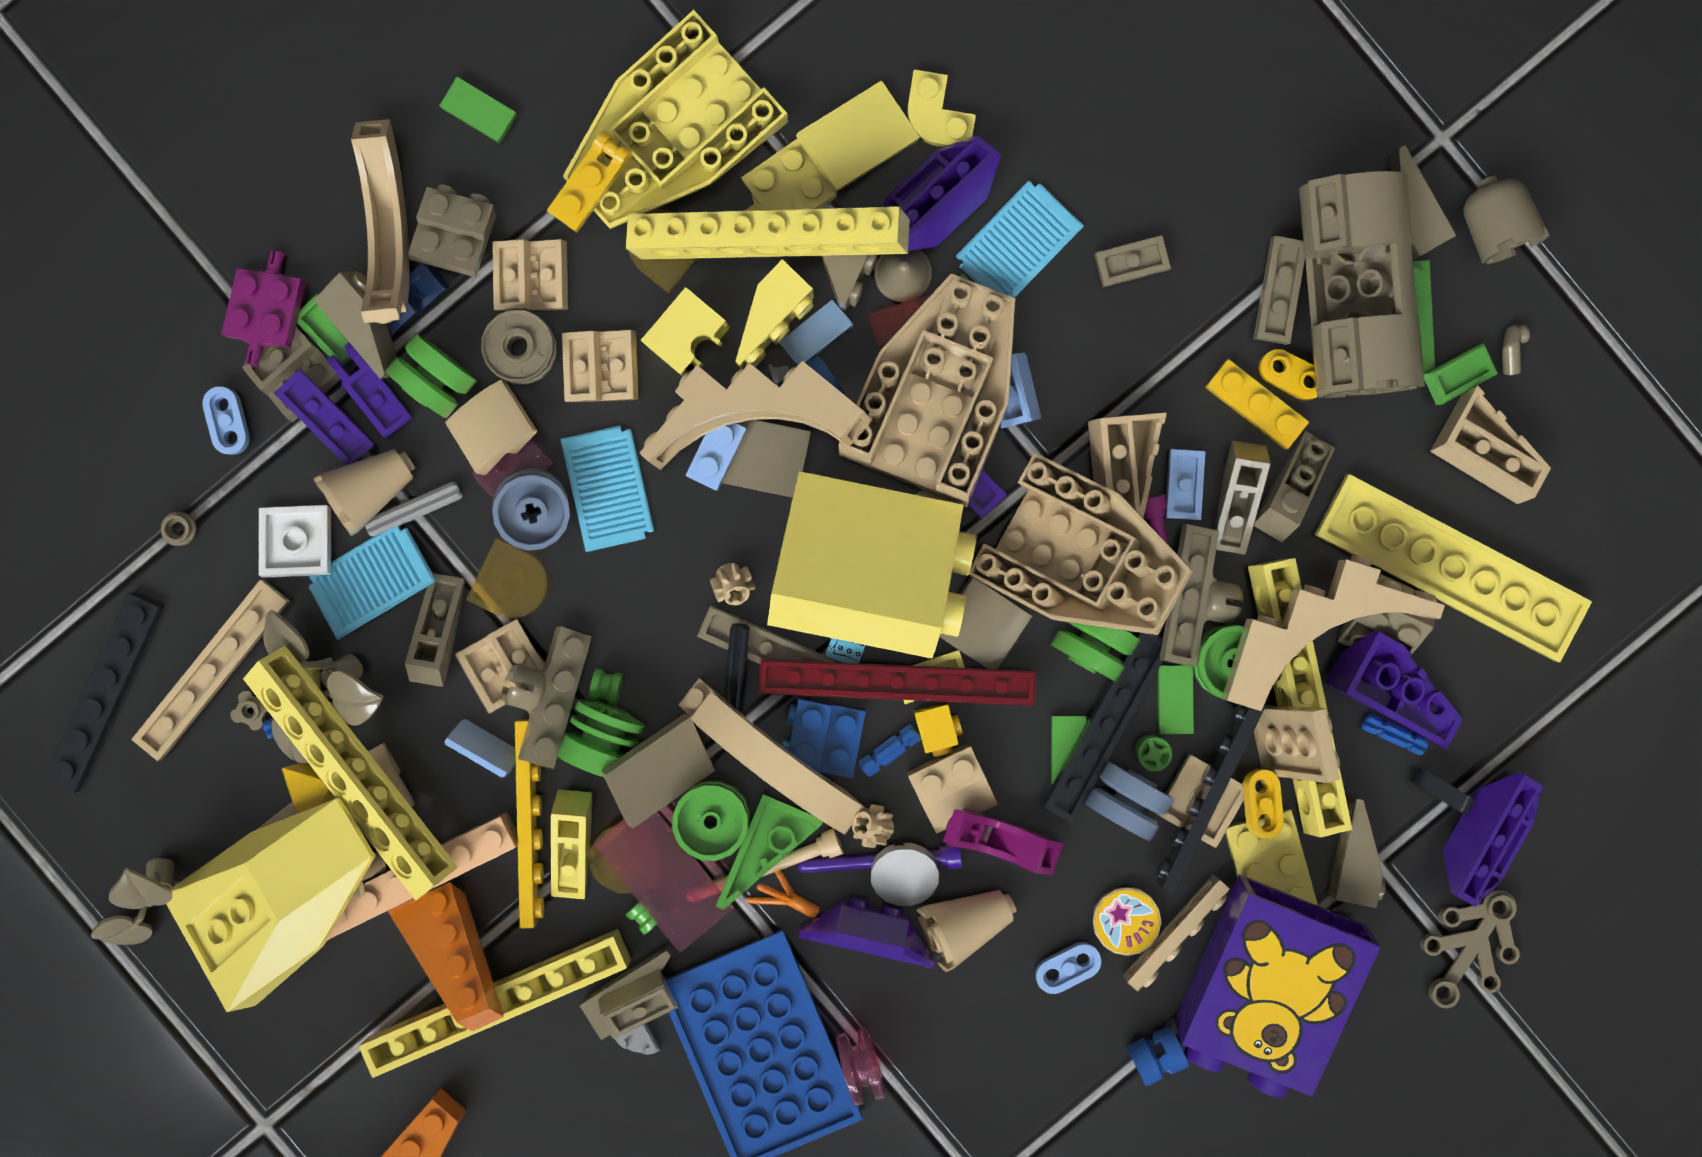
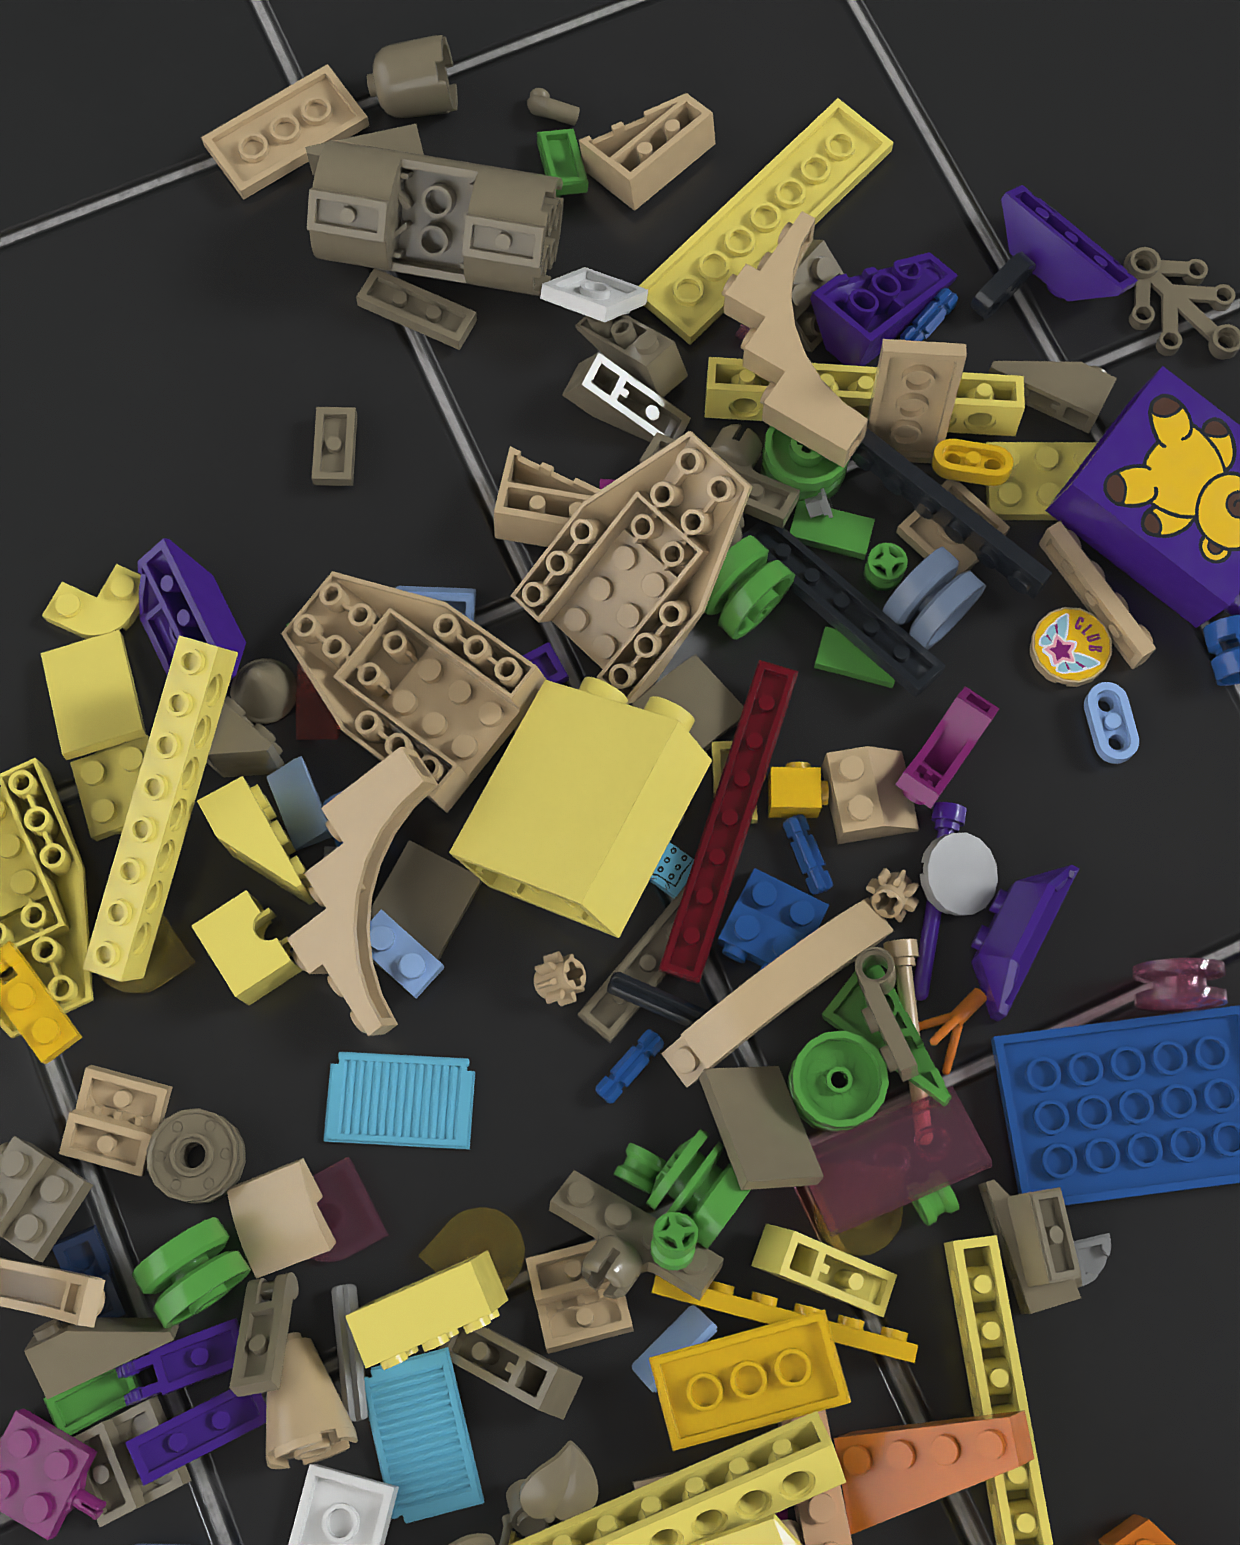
camera: 75 degrees left, 15 degrees down
(403, 444) = (263, 1335): none -> dark tan plate
(453, 560) = (428, 1312): none -> light yellow brick
(470, 811) = (749, 1380): none -> yellow tile
(525, 528) = (413, 1175): sand blue wheel -> none
(560, 730) = (679, 1230): none -> bright green wheel
(600, 366) = (252, 1066): tan slope -> none
(682, 656) = (629, 1066): none -> blue axle
(767, 841) = (879, 1015): none -> dark tan plate
(964, 924) = (1036, 823): tan cone -> none
(1018, 240) = (270, 558): medium azure window -> none
(1185, 484) = (593, 454): light blue plate -> none
(1190, 685) = (819, 505): none -> light grey piece
(1257, 404) = (531, 365): yellow plate -> none
(1291, 377) = (513, 321): yellow plate -> none
(1331, 442) = (594, 294): none -> white plate
(1424, 117) = (274, 134): none -> tan plate

